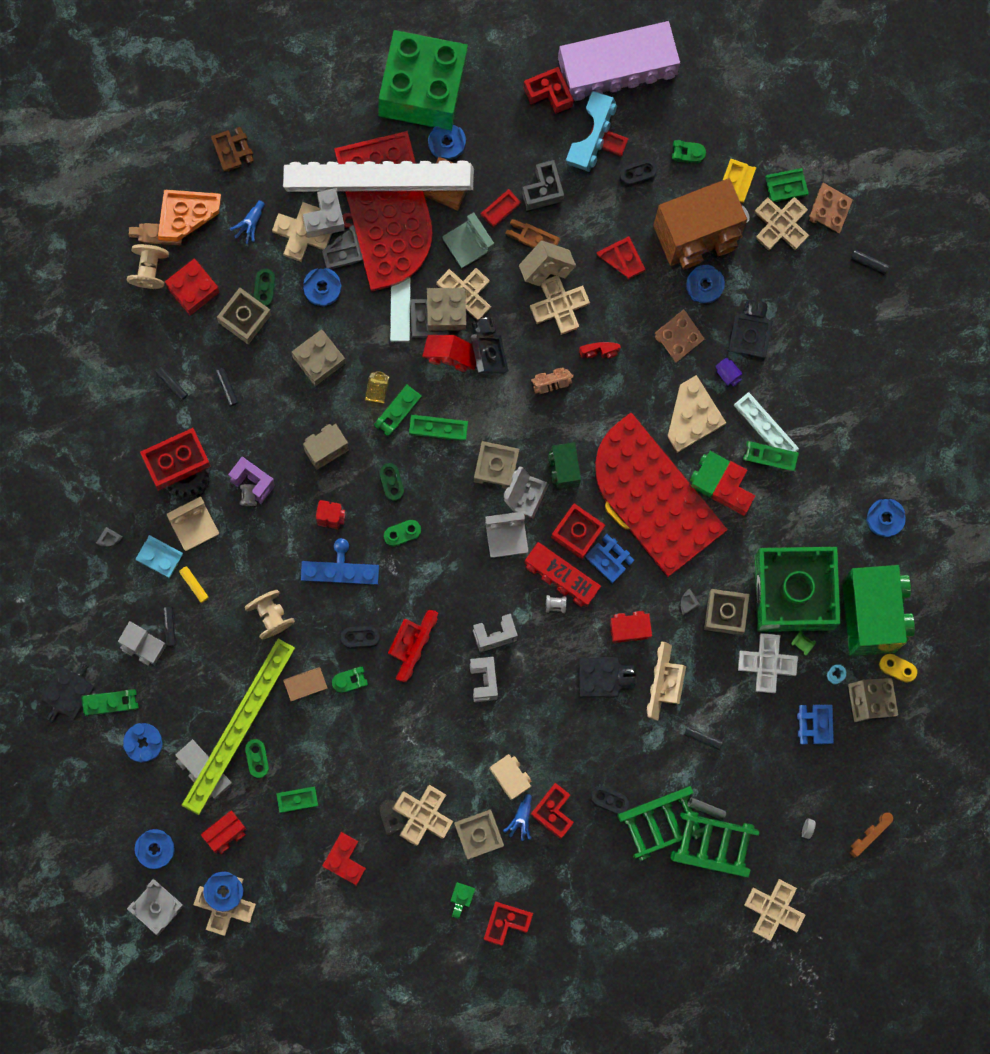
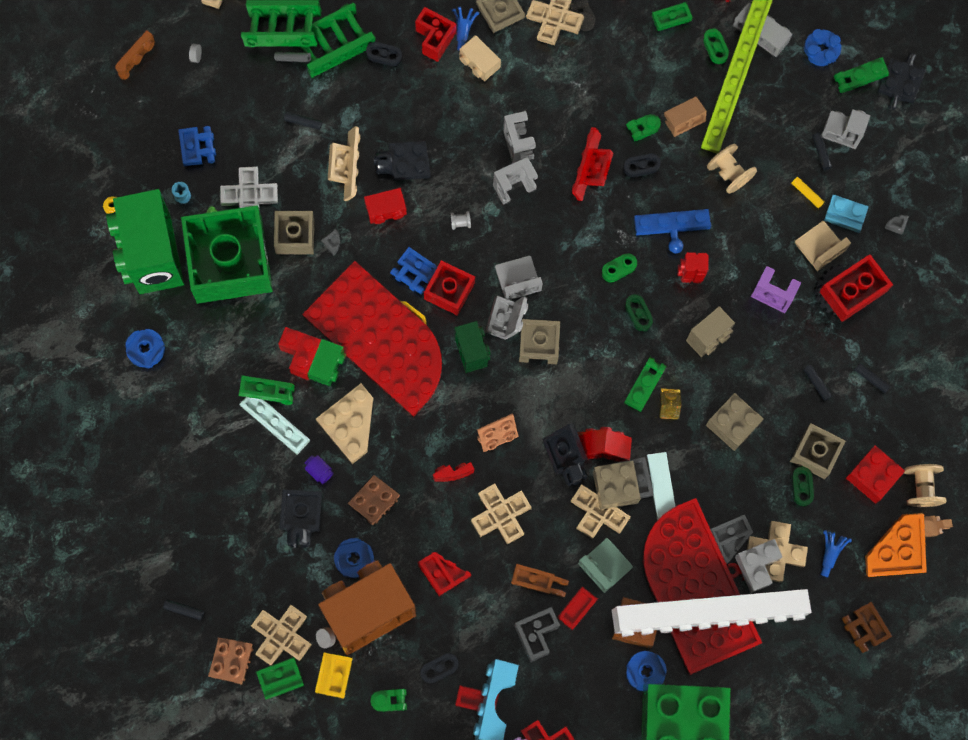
camera: 175 degrees right, 5 degrees down
(248, 496) = (776, 279): light grey bush -> none
(322, 276) = (743, 485): blue plate -> none
(438, 427) = (602, 371): green plate -> none
(546, 260) = (522, 550): dark tan brick -> none
(562, 574) = (458, 247): red brick -> none
(873, 699) = (143, 173): dark tan bracket -> none

